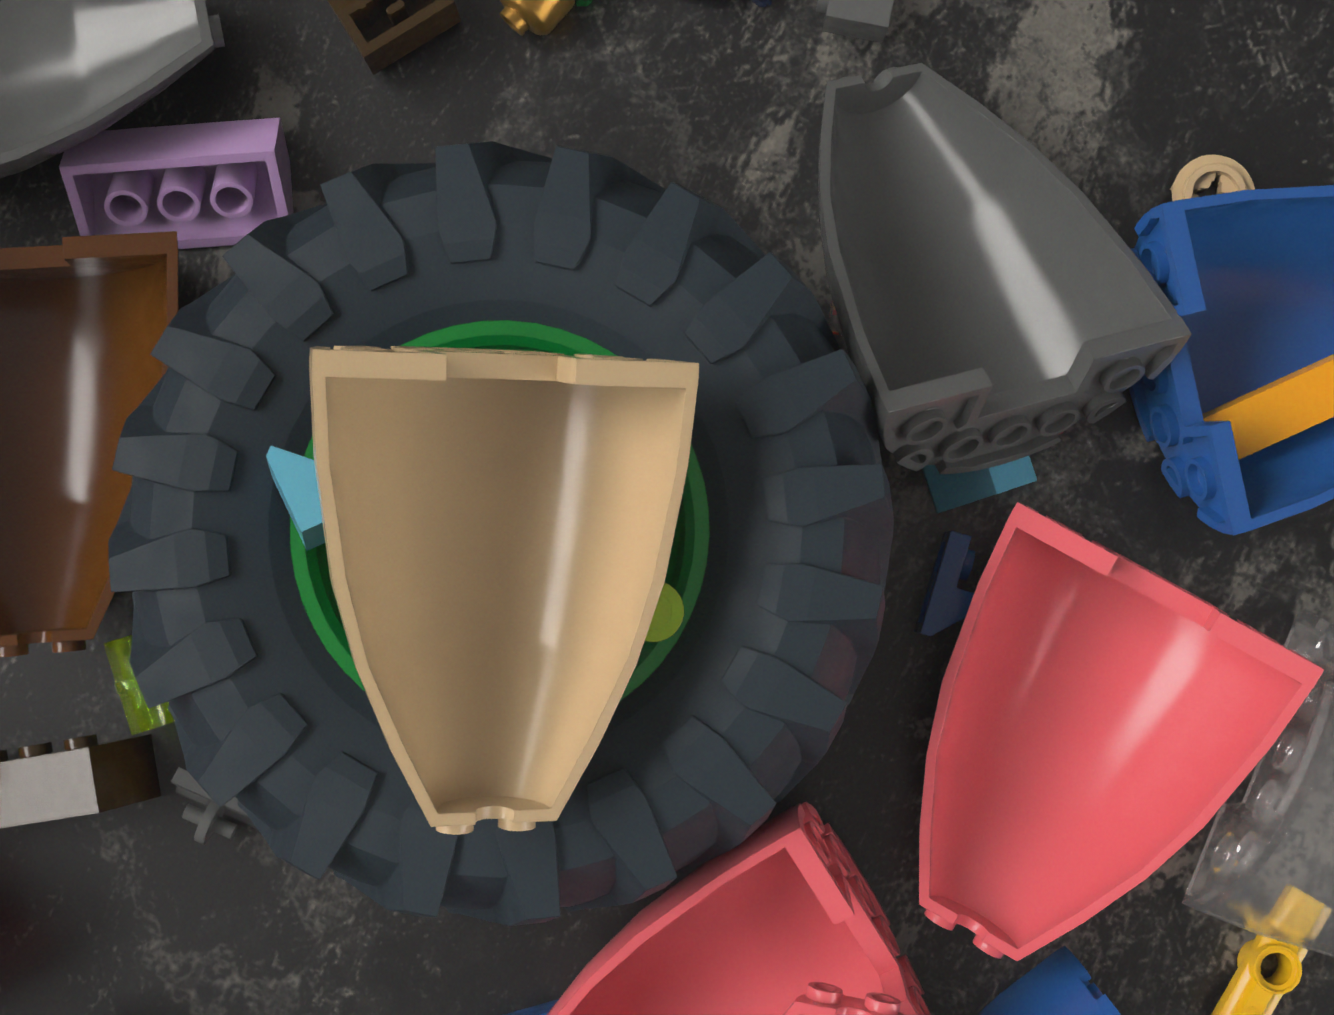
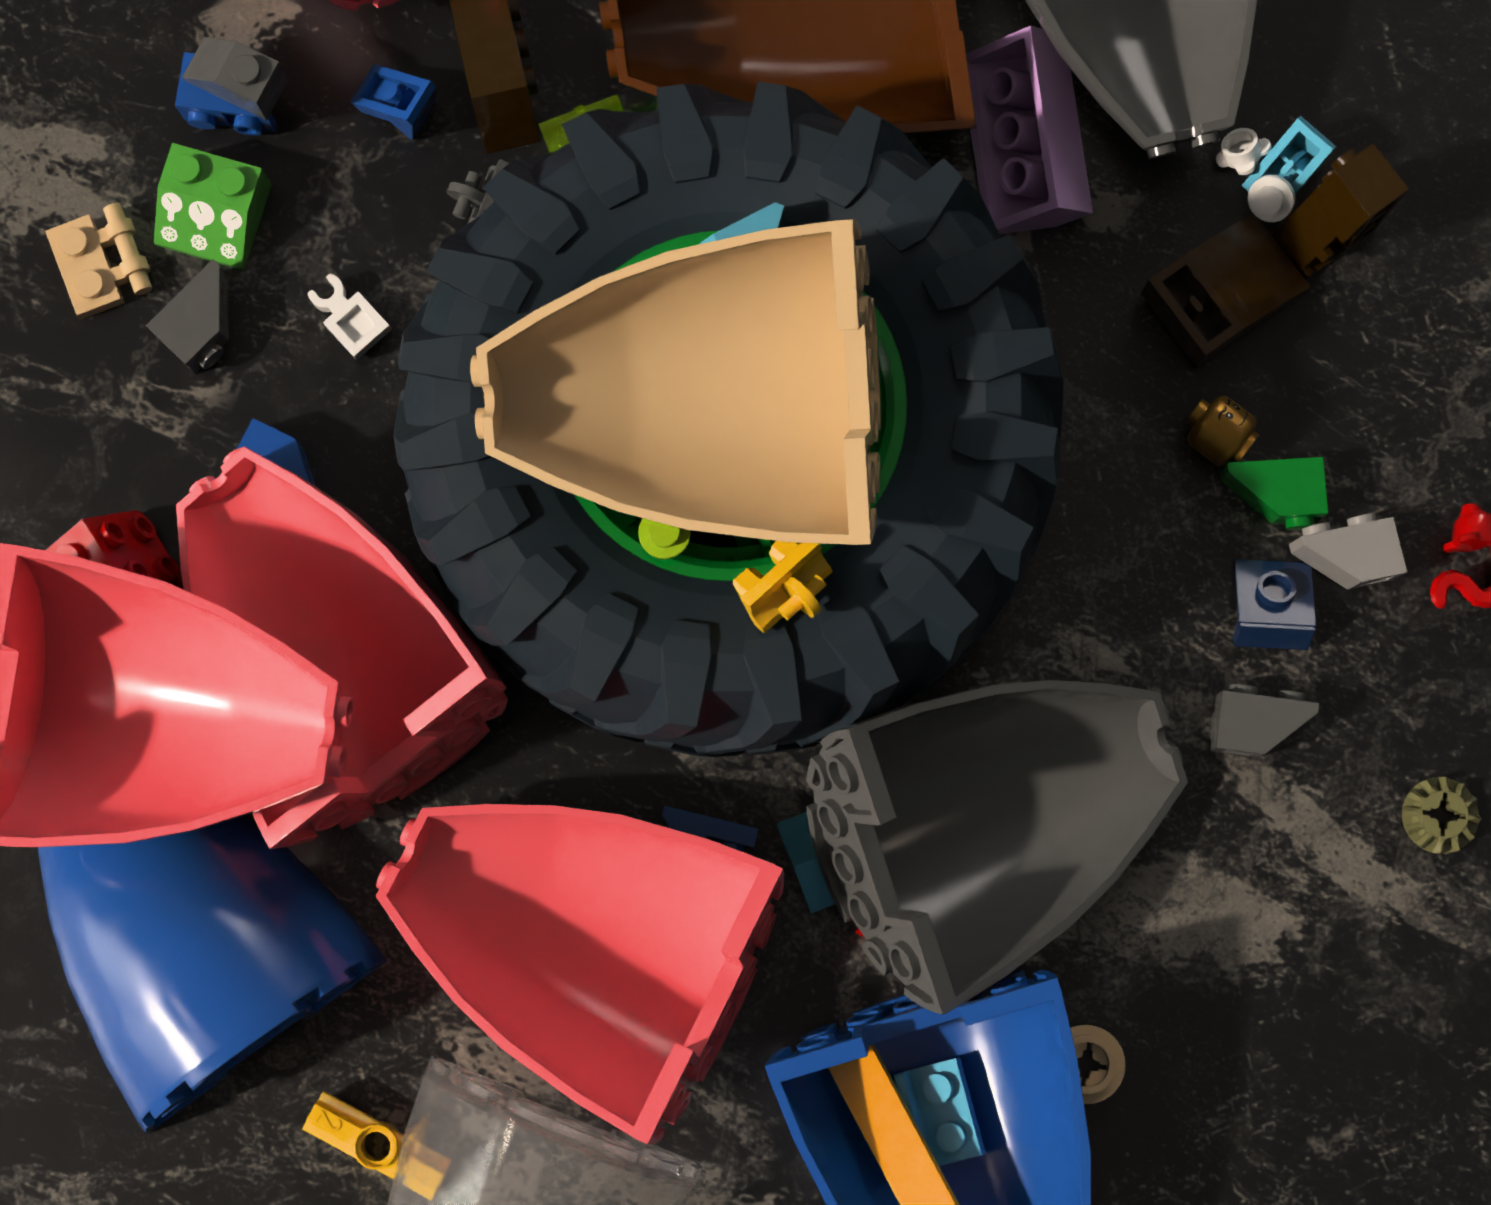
camera: 90 degrees right, 5 degrees down
(89, 898) = (396, 98): none -> blue slope
(346, 958) = (352, 320): none -> white plate
(735, 469) = (787, 586): none -> yellow hips
(1258, 351) = (942, 1110): none -> medium azure bracket

